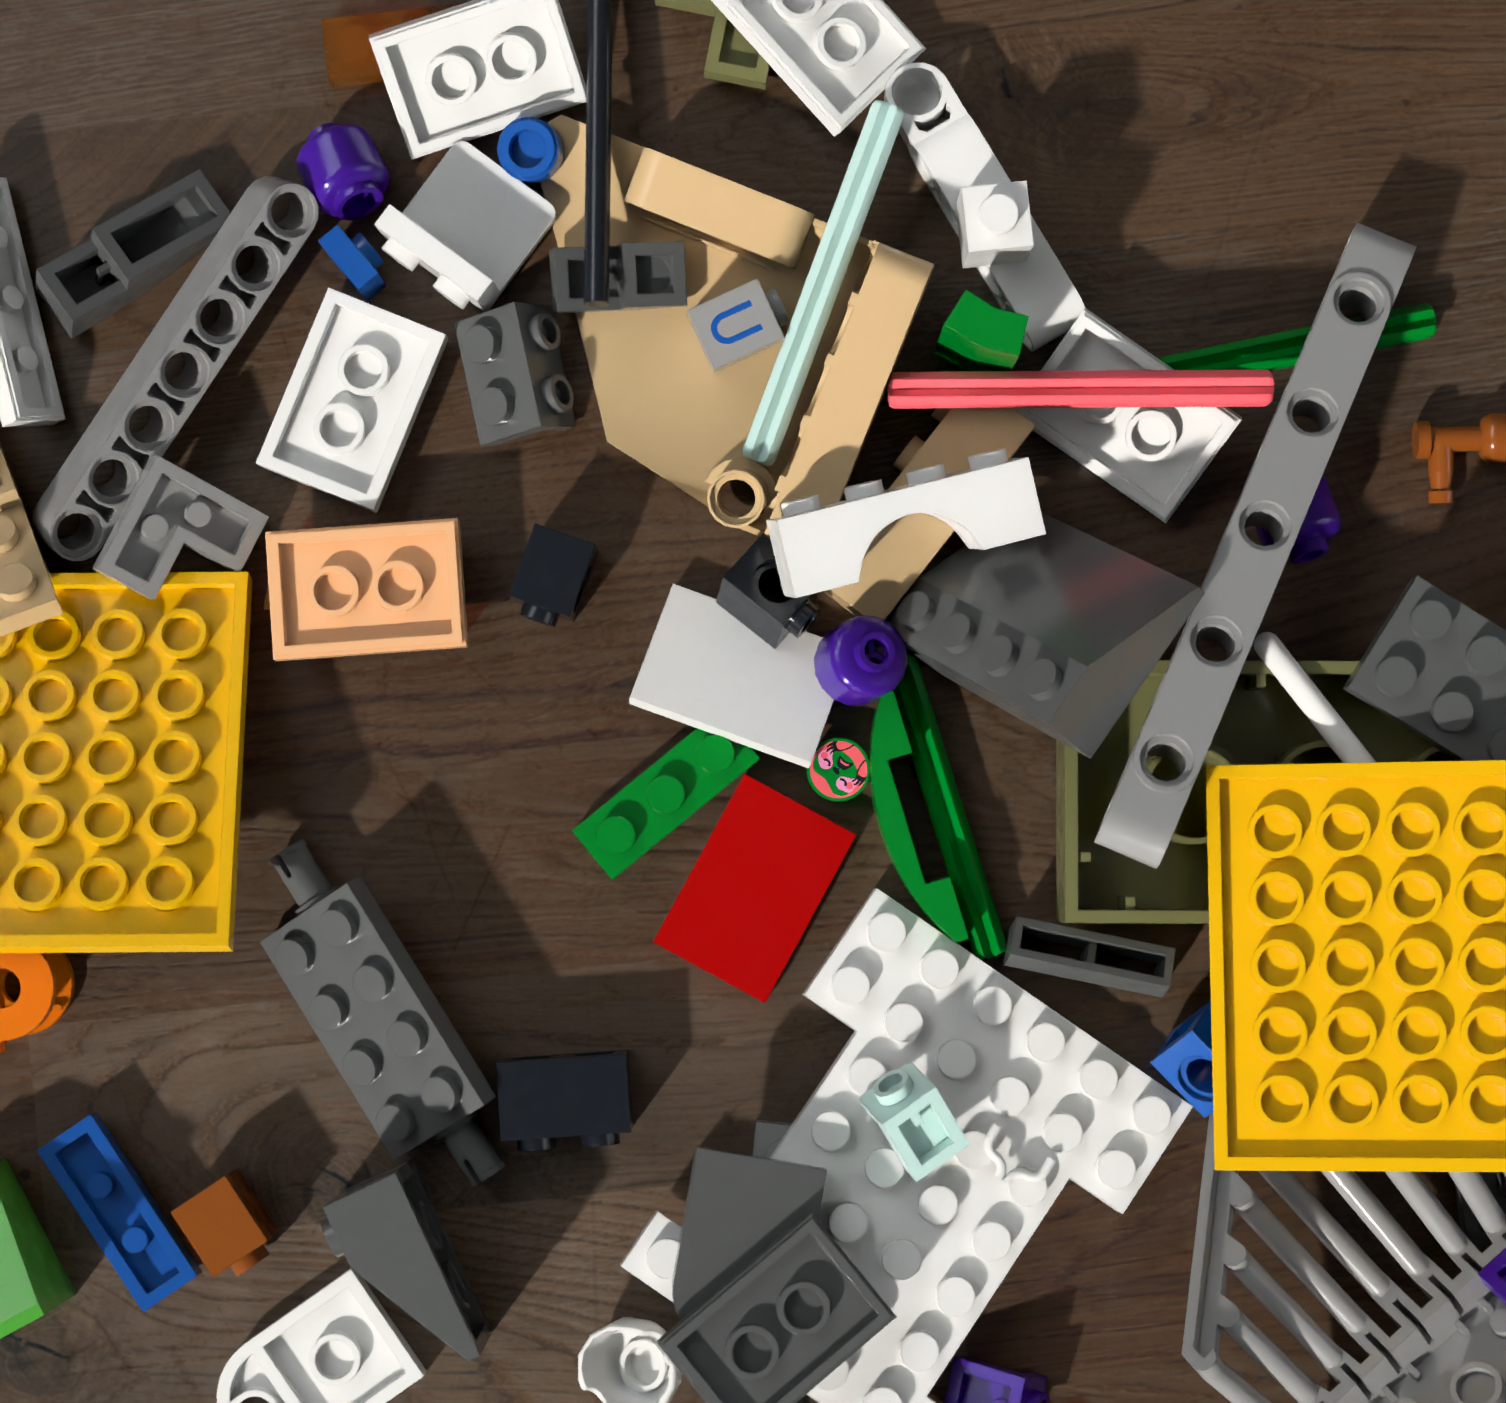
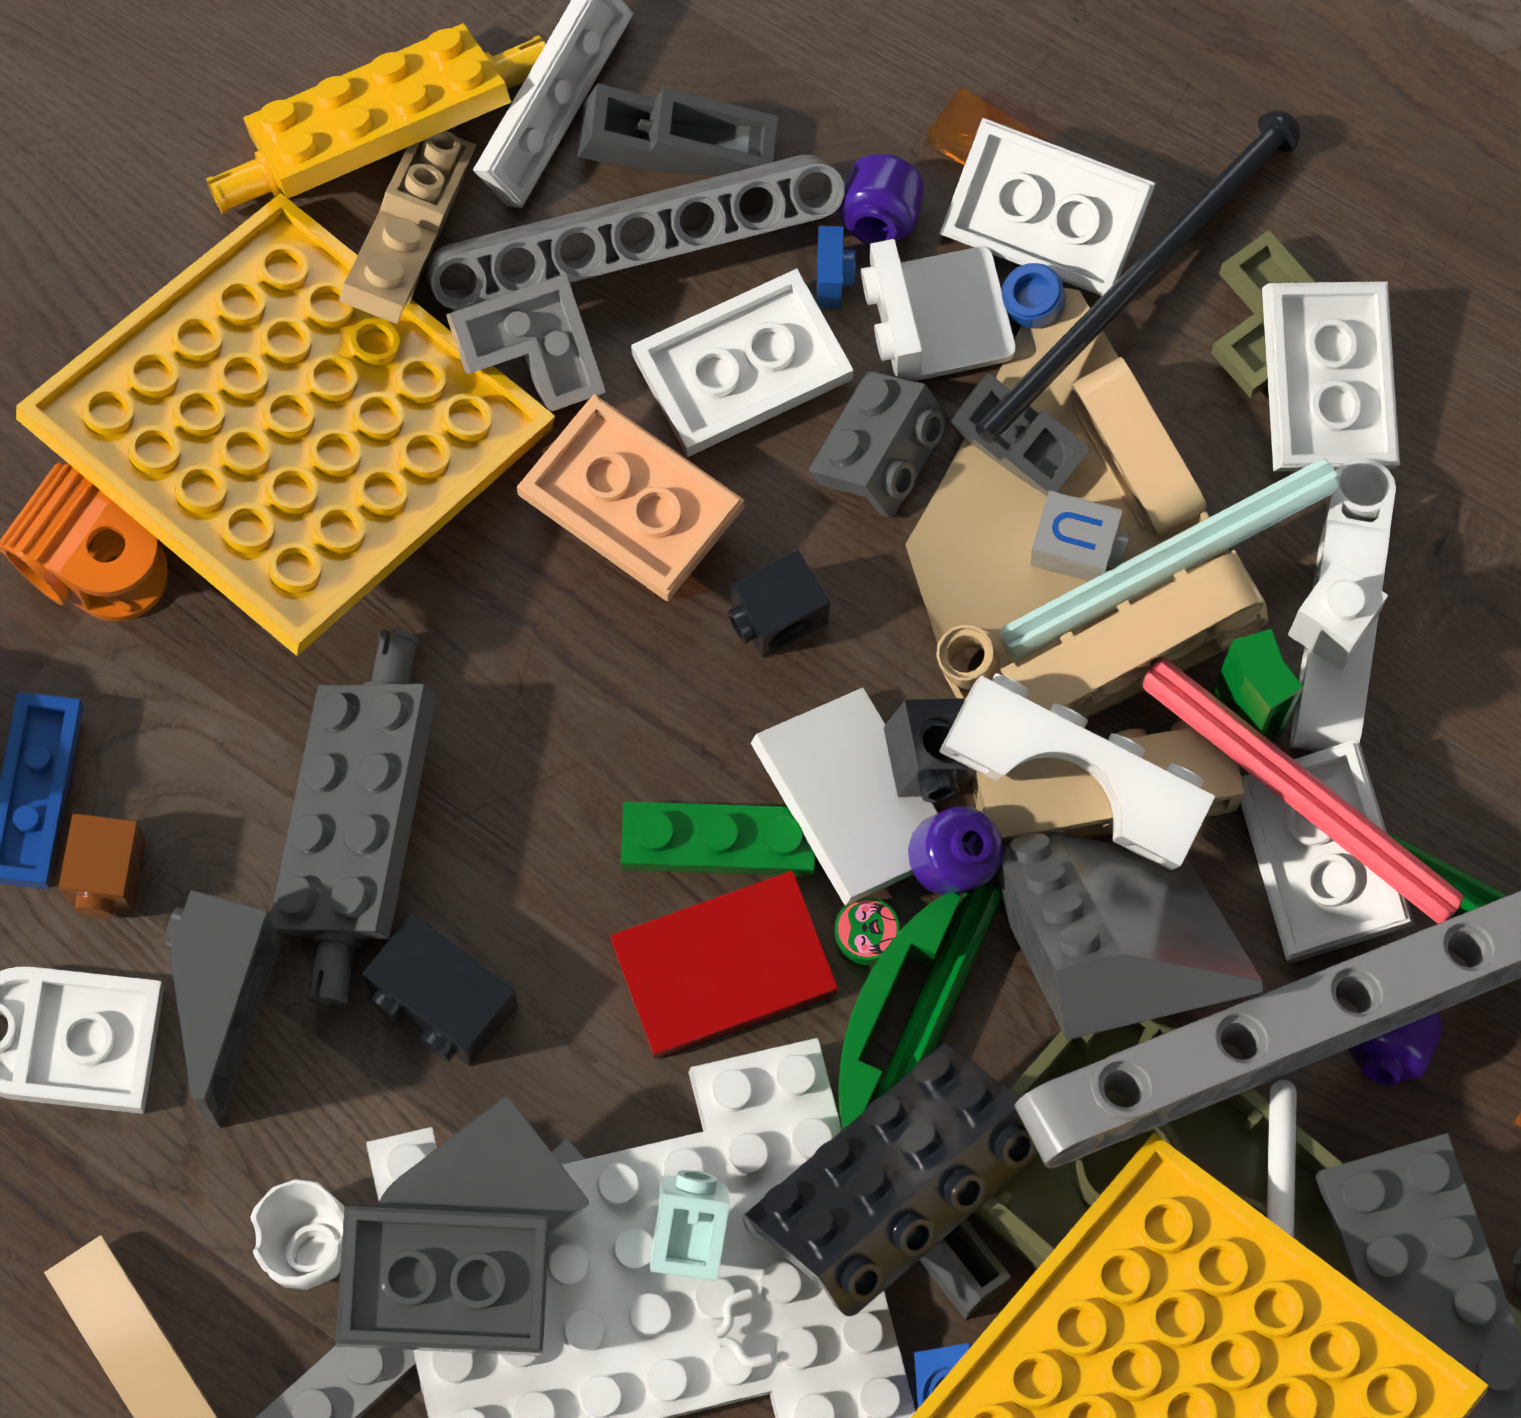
camera: 40 degrees right, 15 degrees down
(1038, 959) = (897, 1179): none -> black bracket

